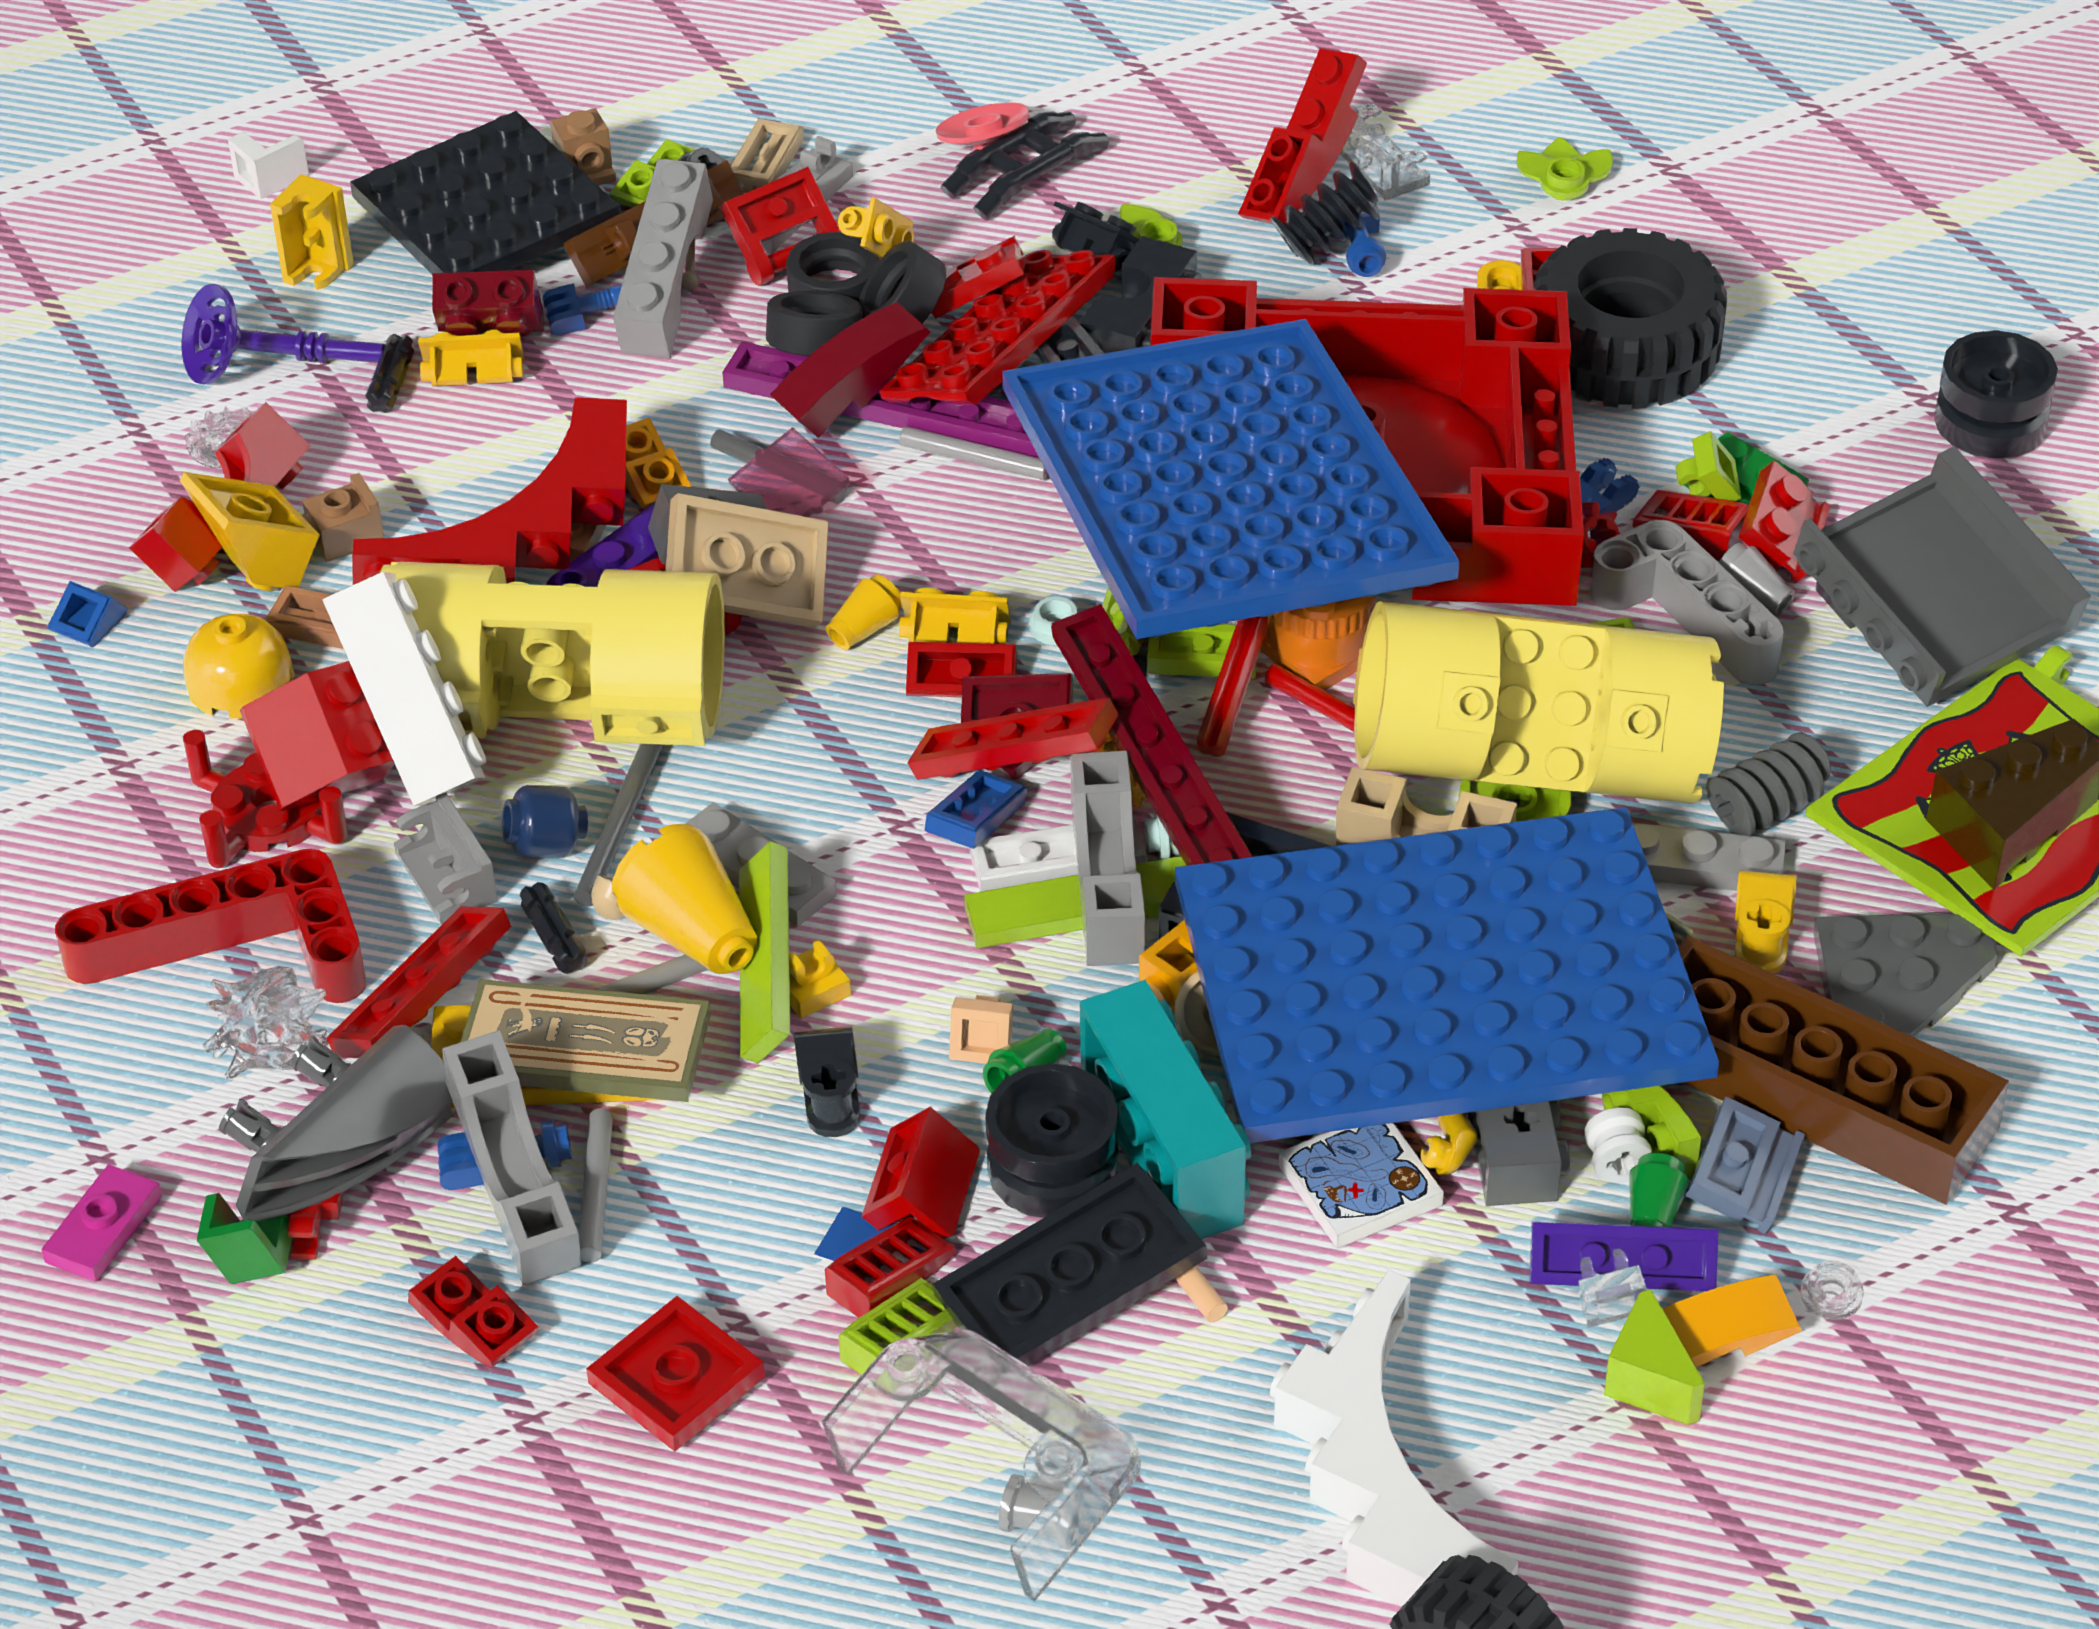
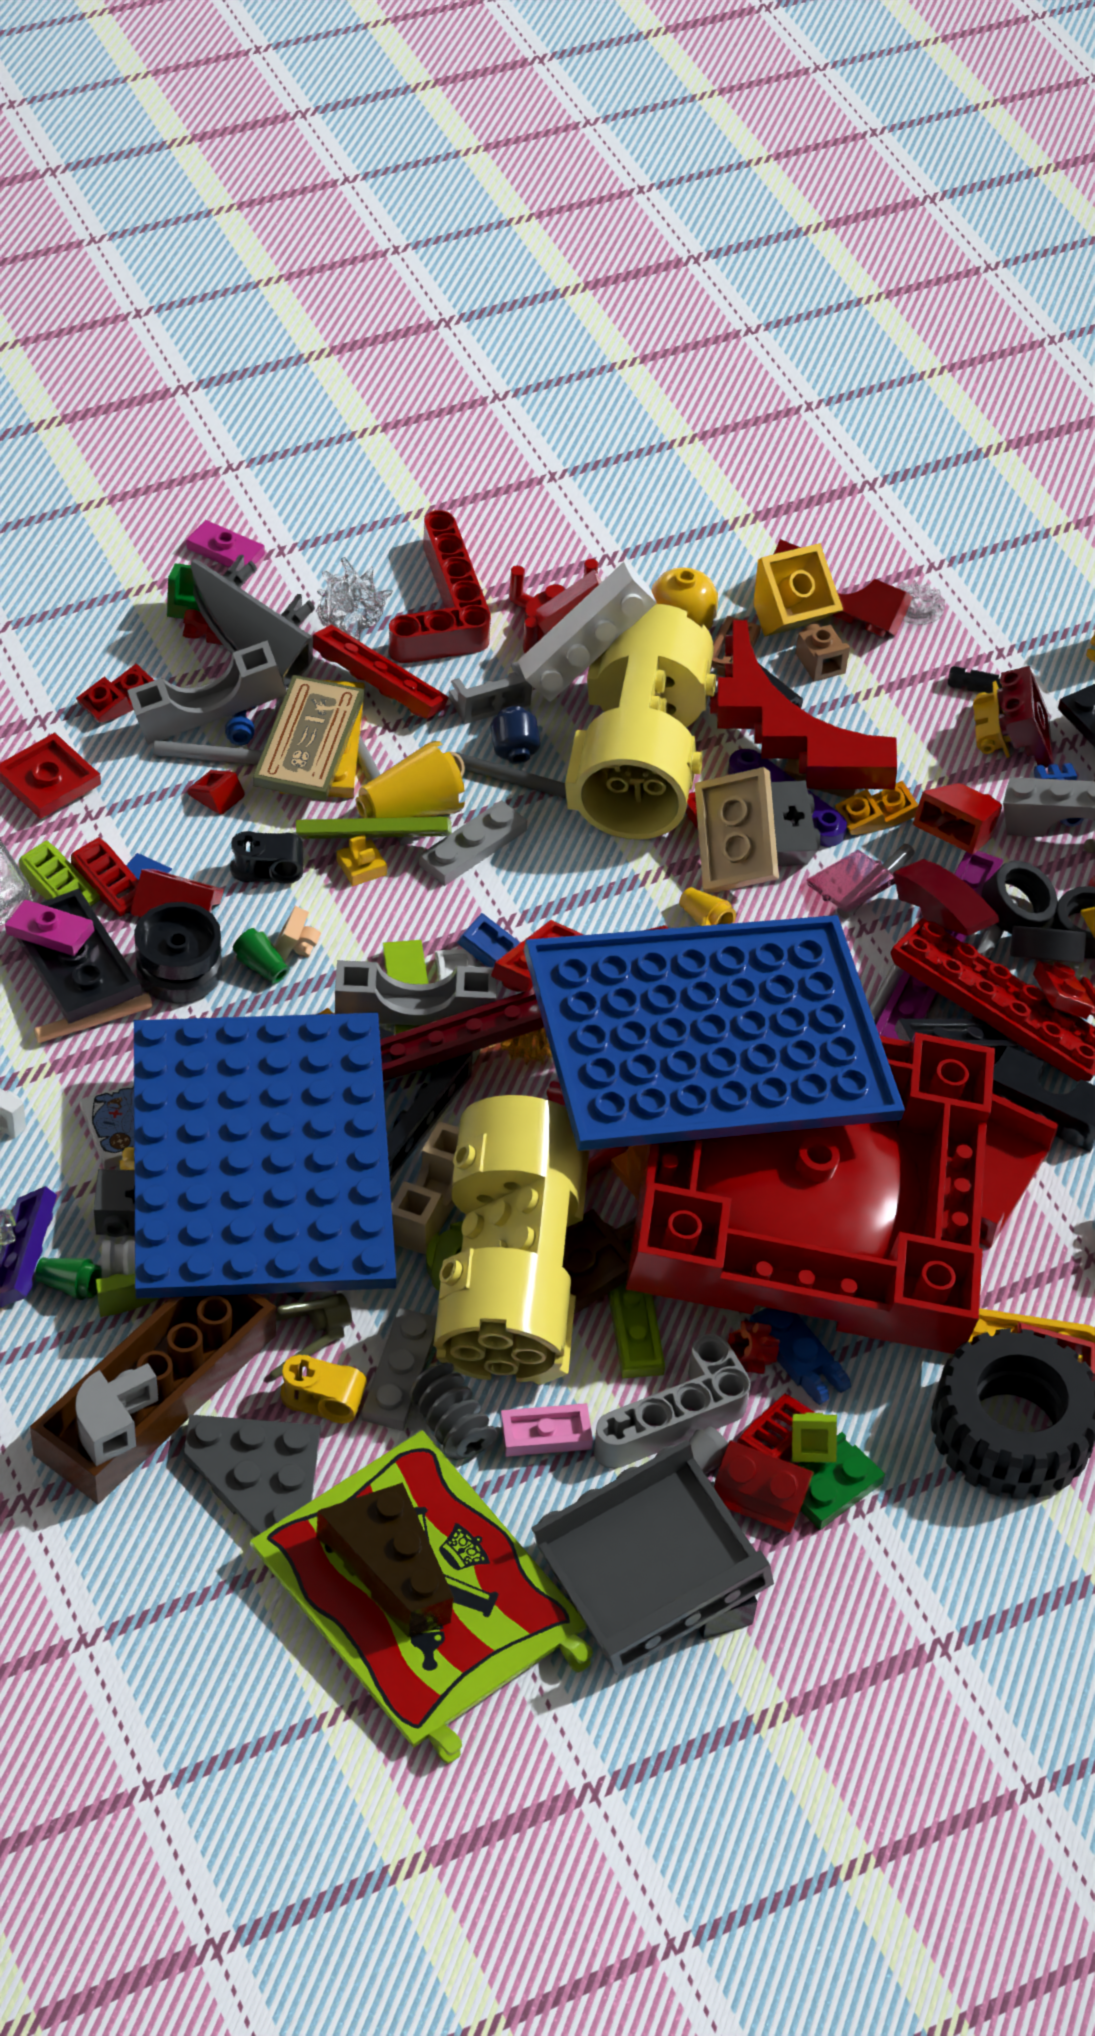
camera: 90 degrees right, 5 degrees up
(85, 614) = (747, 540): blue slope -> none
(228, 337) = (1008, 590): dark purple dish -> none
(553, 927) = (451, 736): black axle -> none
(674, 1168) = (217, 790): none -> red slope
(679, 368) = (958, 816): none -> red torso
(1035, 1293) = (49, 927): none -> dark pink plate
(1166, 1107) = (192, 987): teal brick -> none
(1744, 1165) = (84, 1330): sand blue plate -> none
(1755, 708) = (546, 1430): none -> bright pink plate
(1931, 1063) = (106, 1407): none -> light grey brick
(1995, 394) = (909, 1672): black wheel -> none

